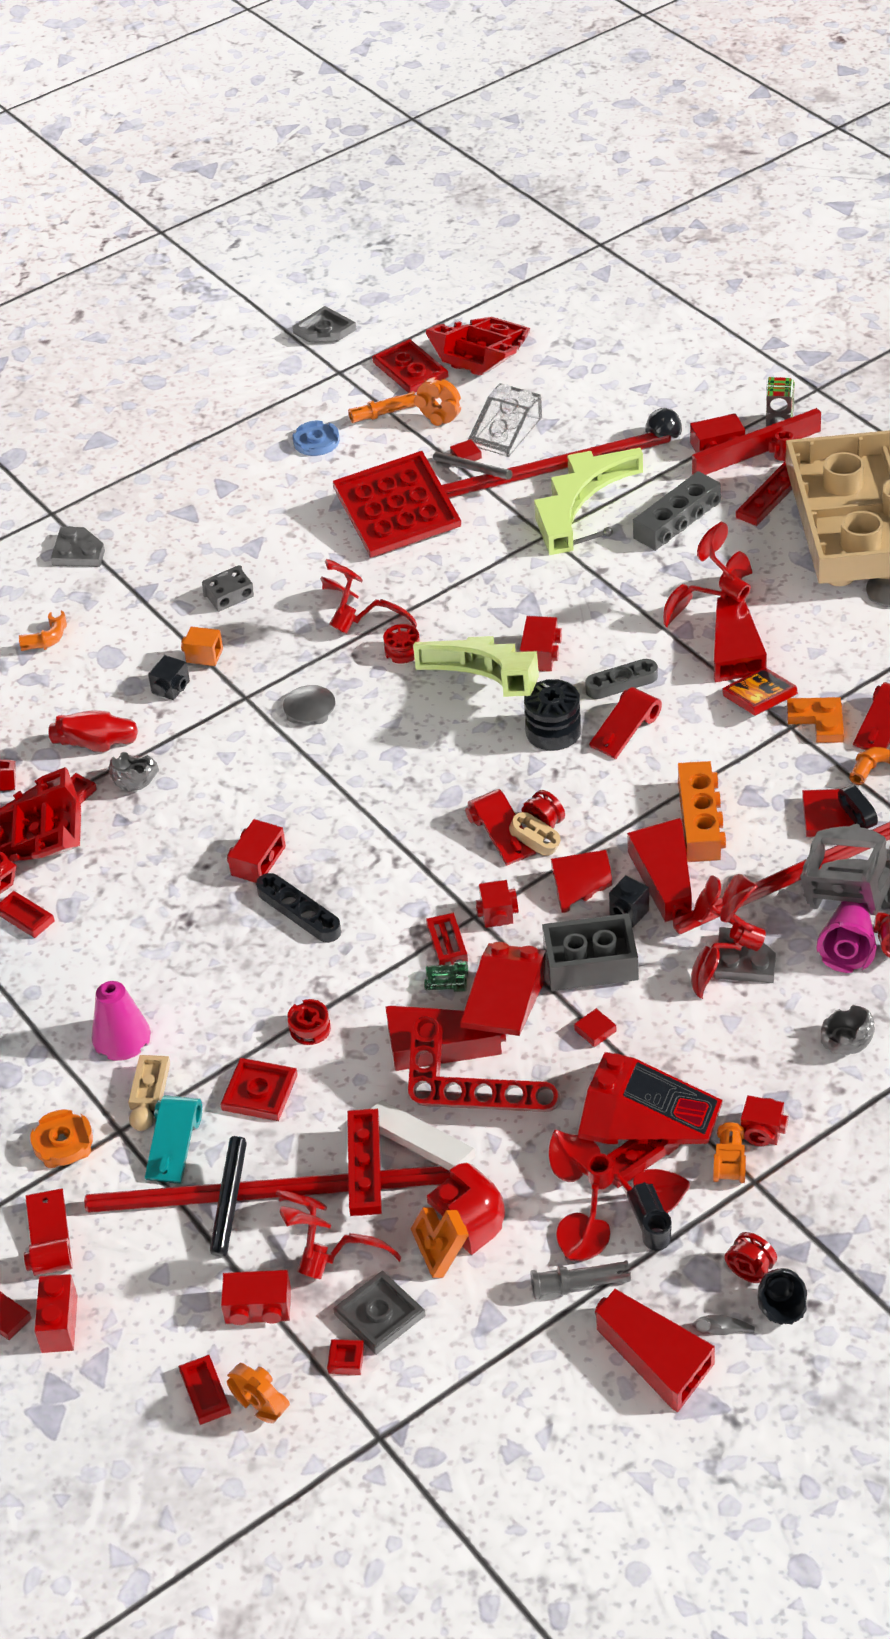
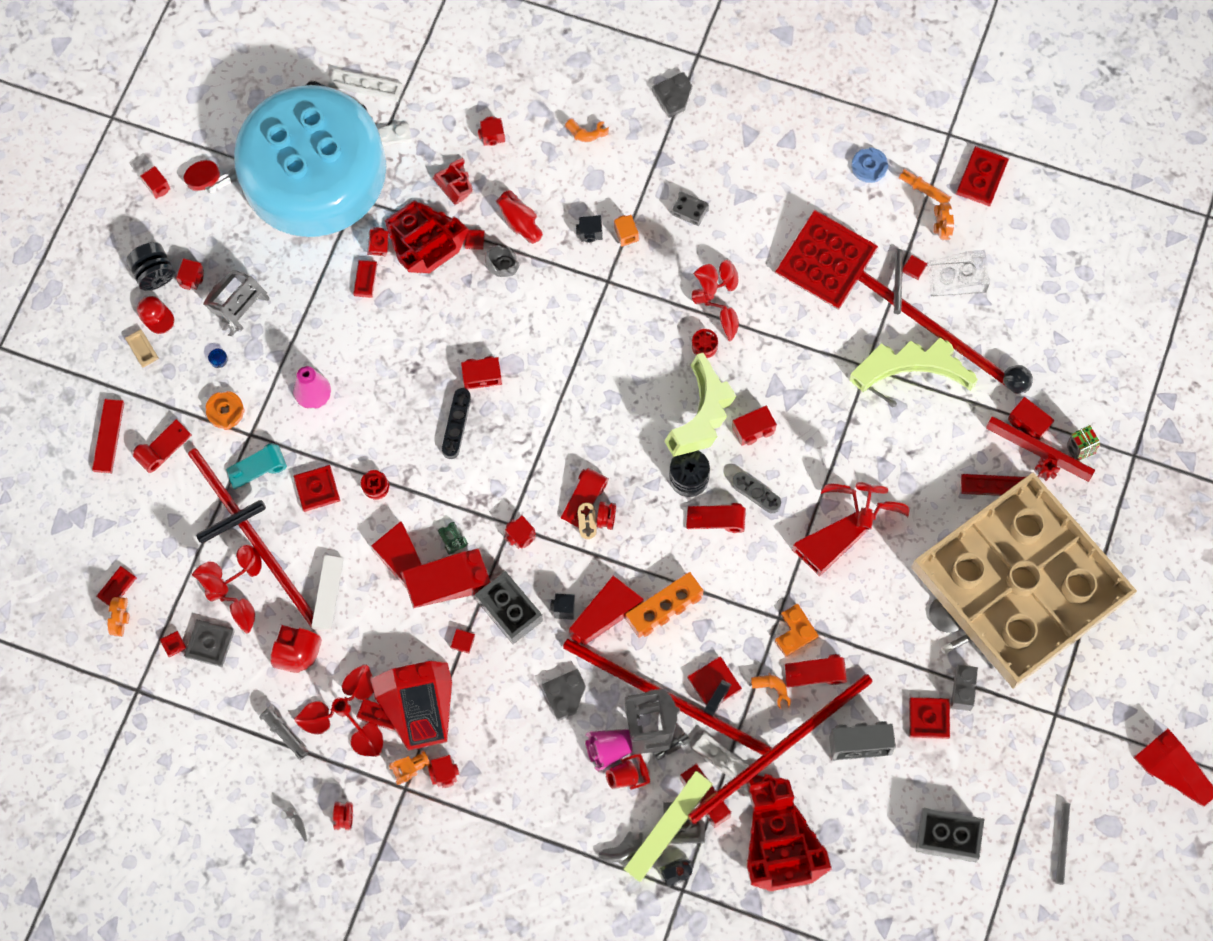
camera: 55 degrees right, 25 degrees up
(56, 1313) = (114, 485): red brick -> none
(147, 1089) = (280, 431): tan plate -> none
(256, 1297) = (179, 577): red brick -> none
(309, 704) = (621, 322): flat silver dish -> none
(324, 326) = (986, 94): flat silver plate -> none
(364, 1162) = (289, 577): red plate -> none
(439, 1239) = (261, 650): orange plate -> none
(451, 956) = (486, 525): red tile -> none
(468, 1086) = (361, 581): red beam -> none
(479, 344) = (1031, 208): red wedge -> none
(580, 876) = (570, 567): red slope -> none
(650, 1215) = (344, 745): black piece -> none
(656, 1347) = (259, 801): red slope -> none
(676, 510) = (927, 429): dark grey brick -> none
(741, 932) = (559, 675): red plant -> none
(759, 691) = (793, 583): tile -> none
(782, 1296) = (326, 846): black hair -> none
(848, 1030) = (535, 784): flat silver hair -> none

